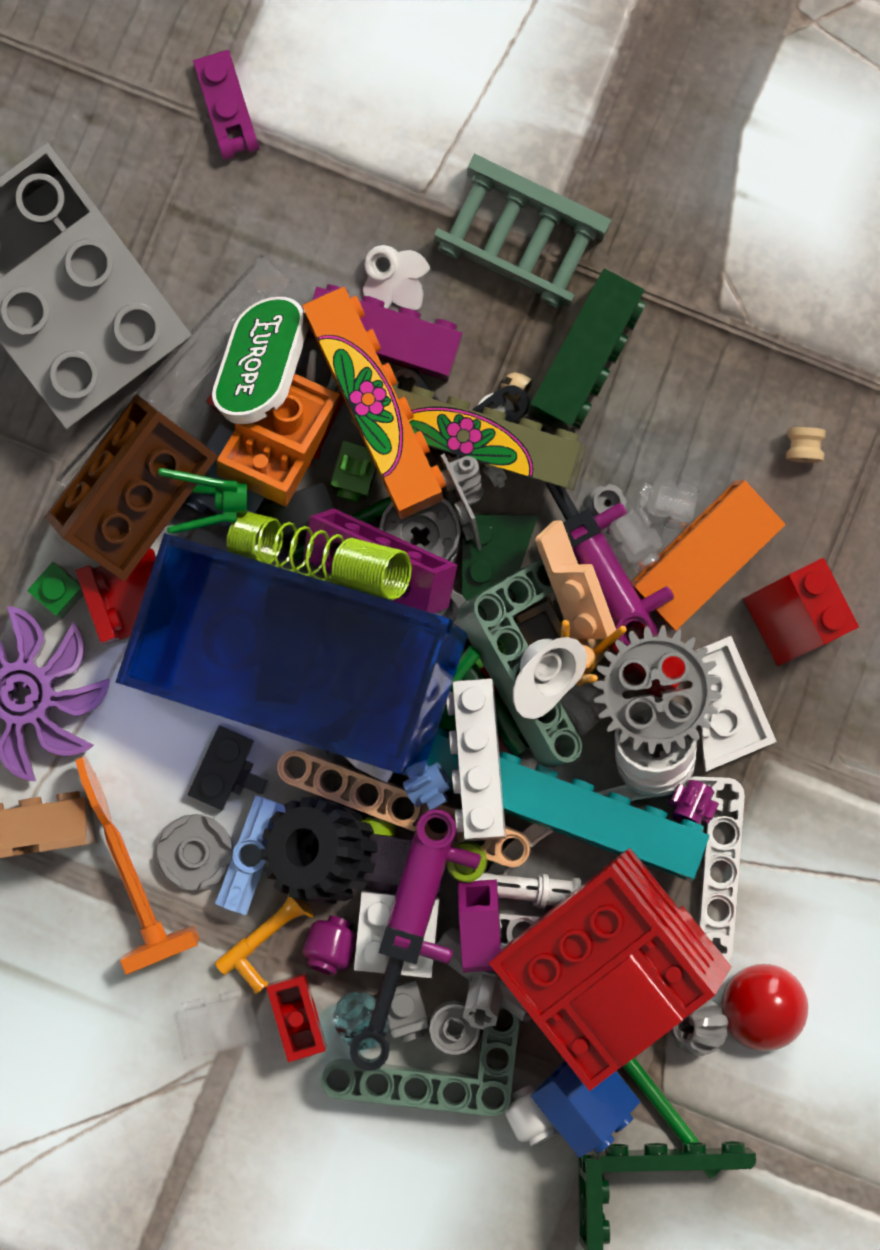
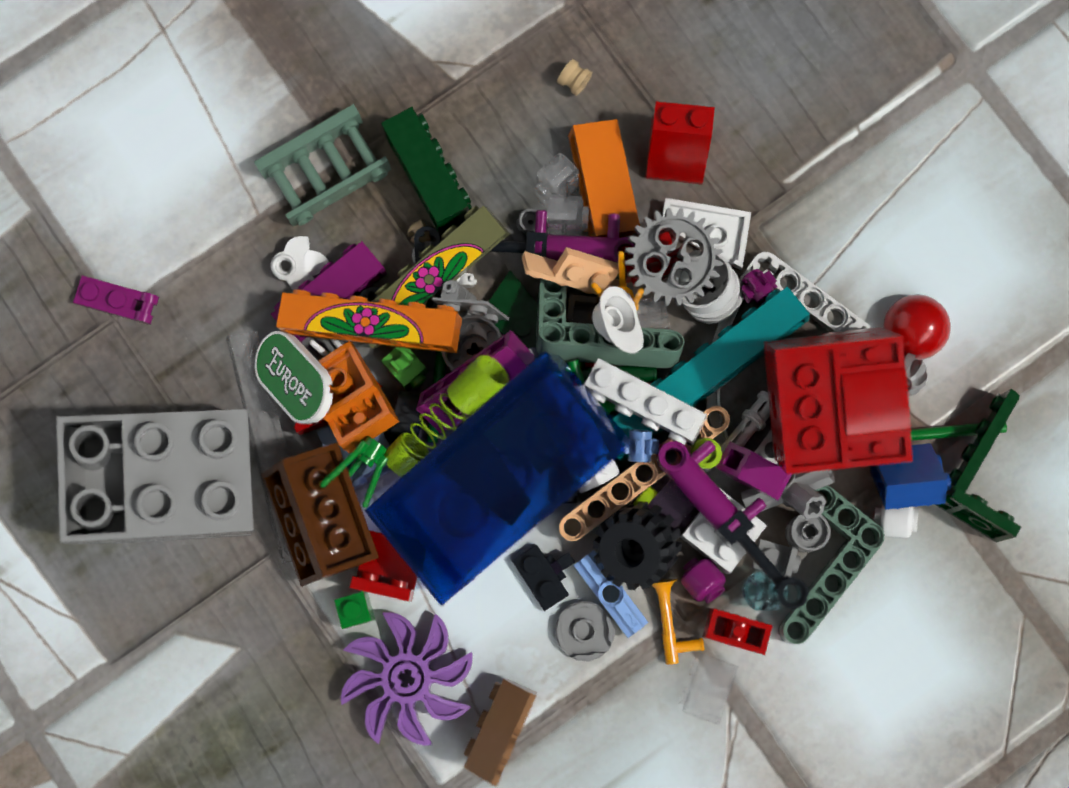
camera: 50 degrees left, 5 degrees down
(157, 943) = (629, 693): orange piece -> none

